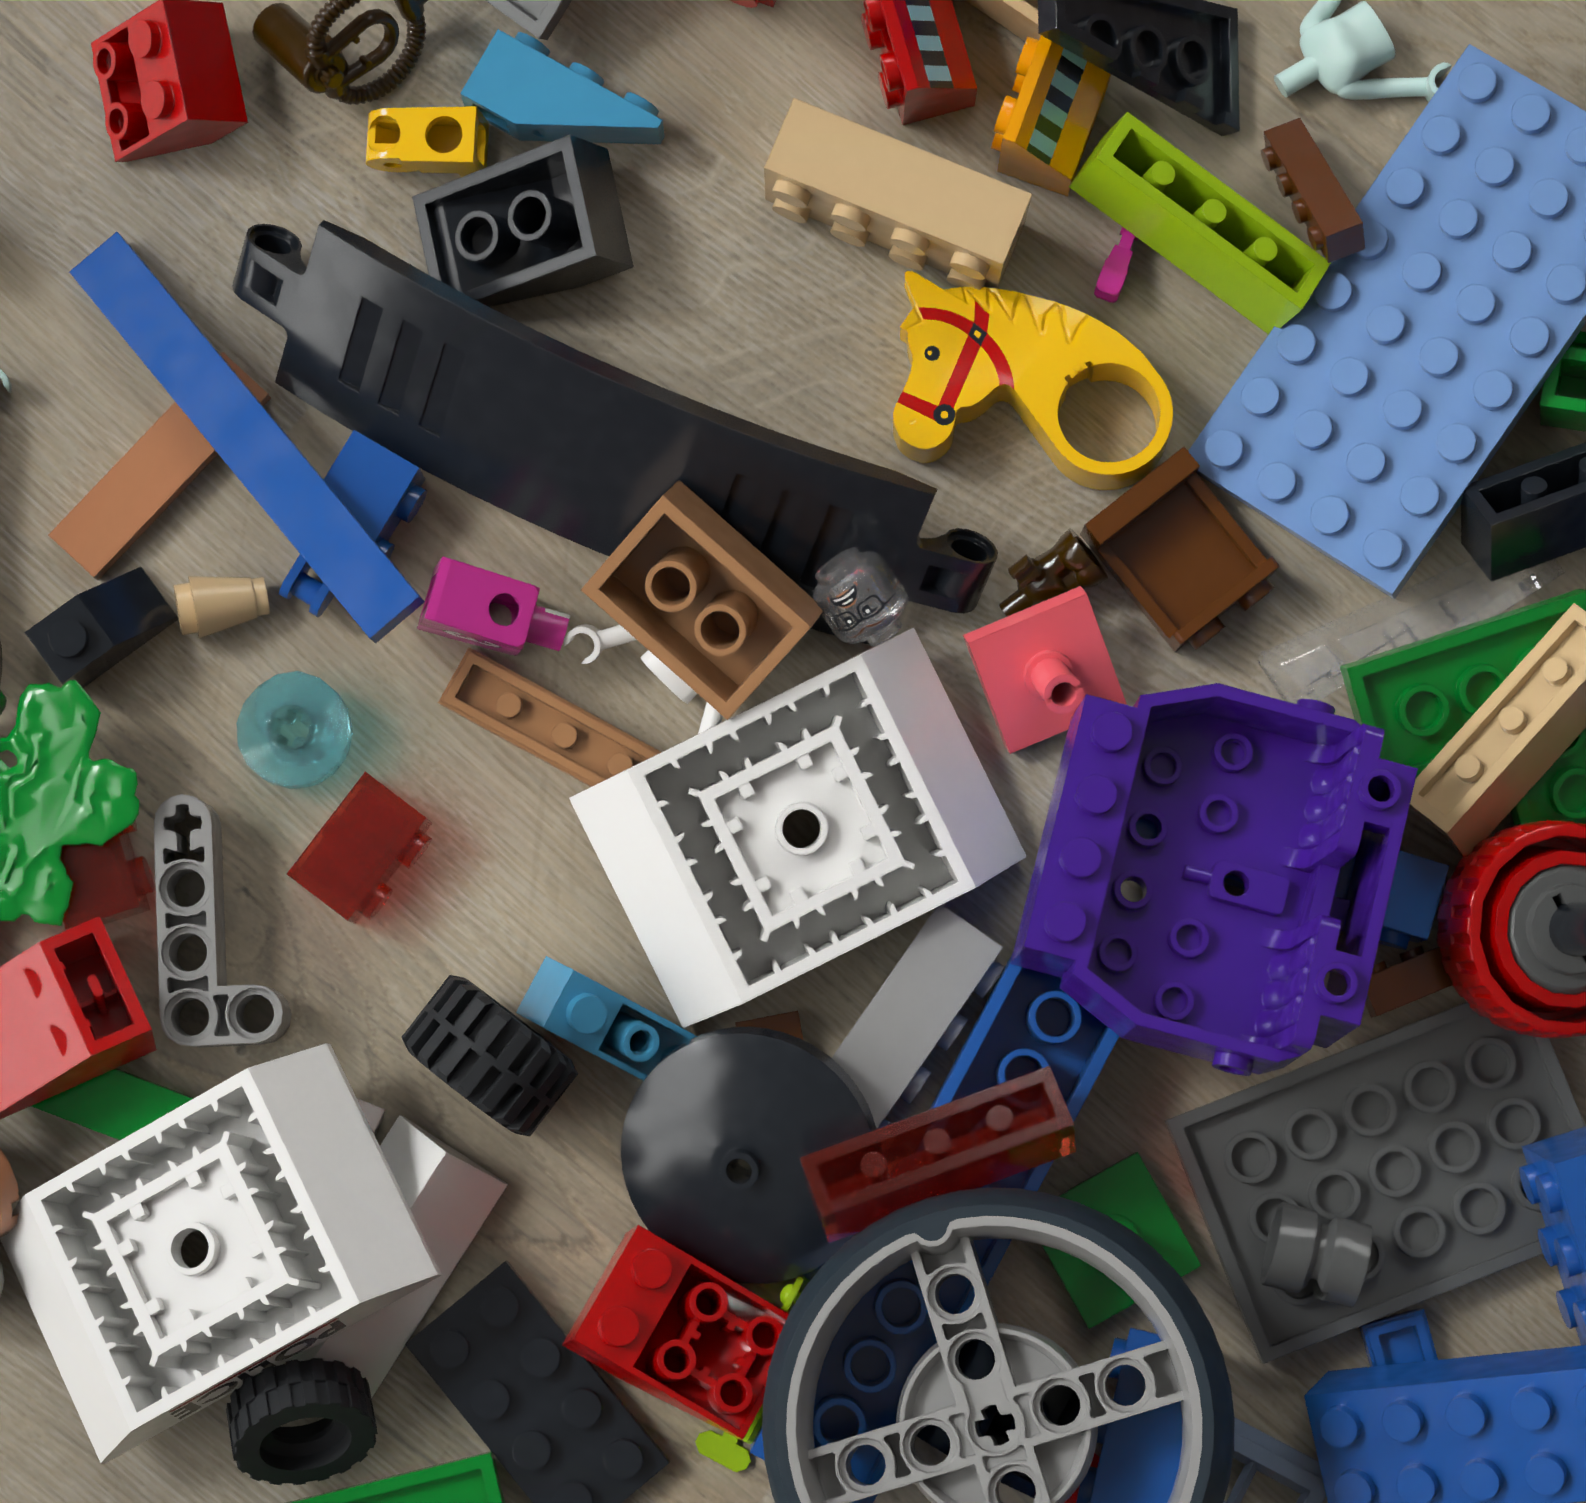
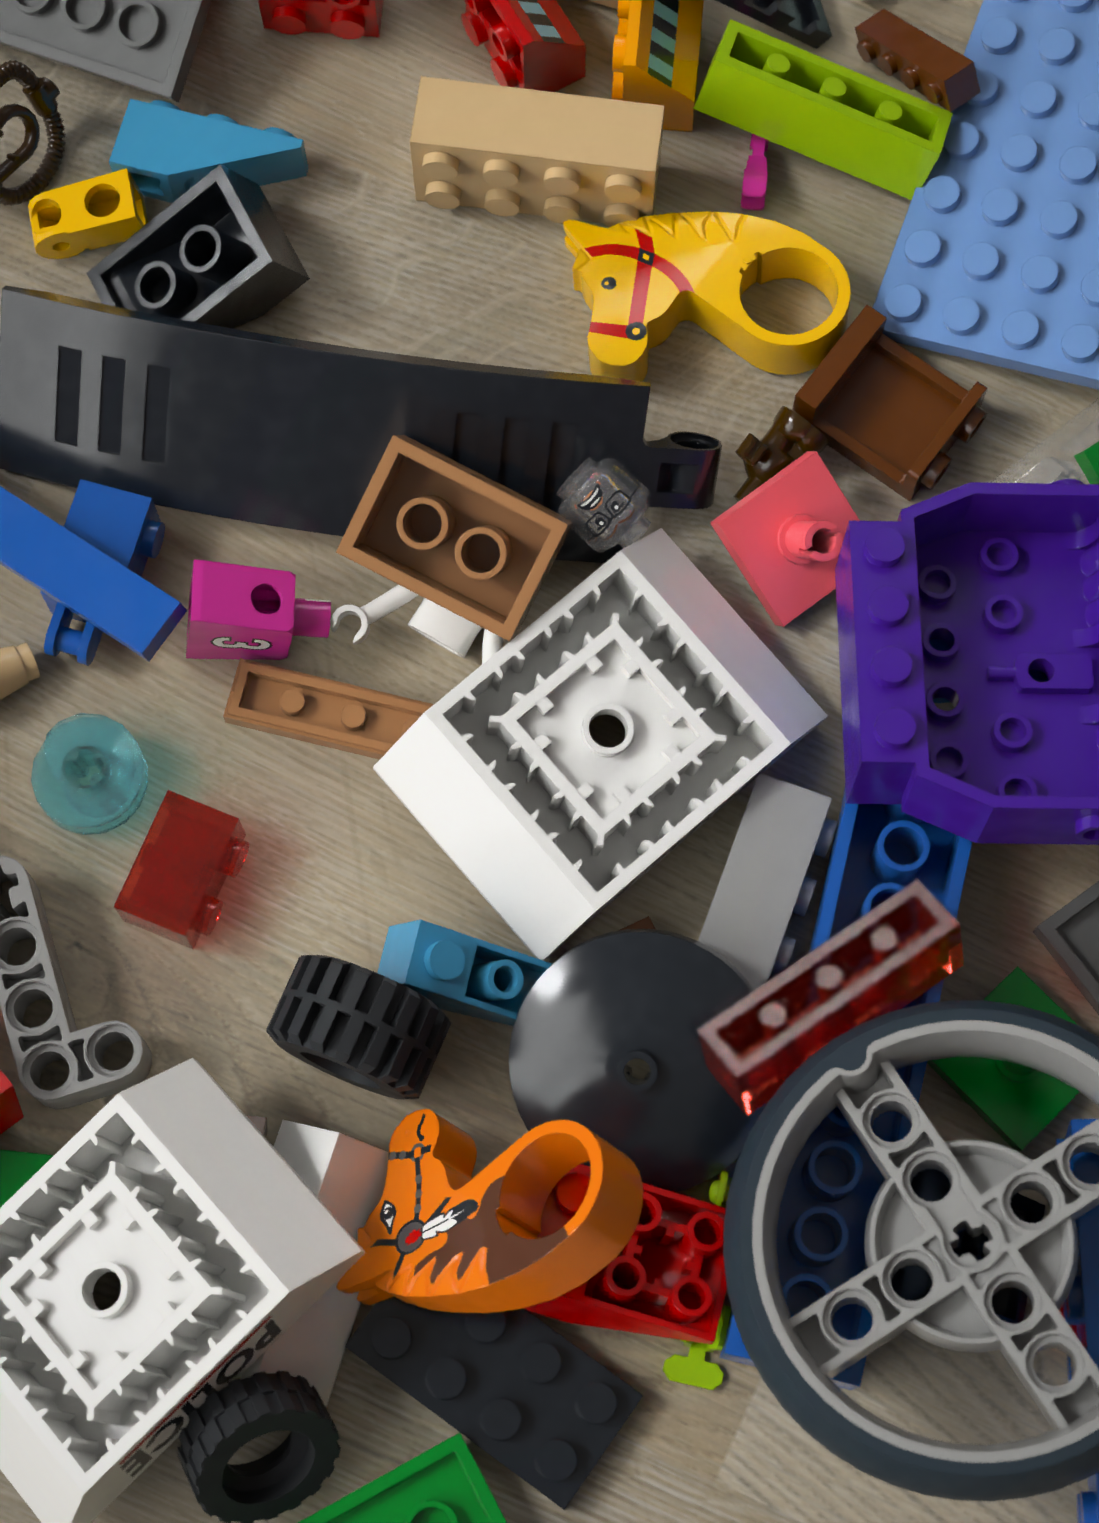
camera: 15 degrees left, 10 degrees down
(545, 1286) = (474, 1240): none -> orange animal

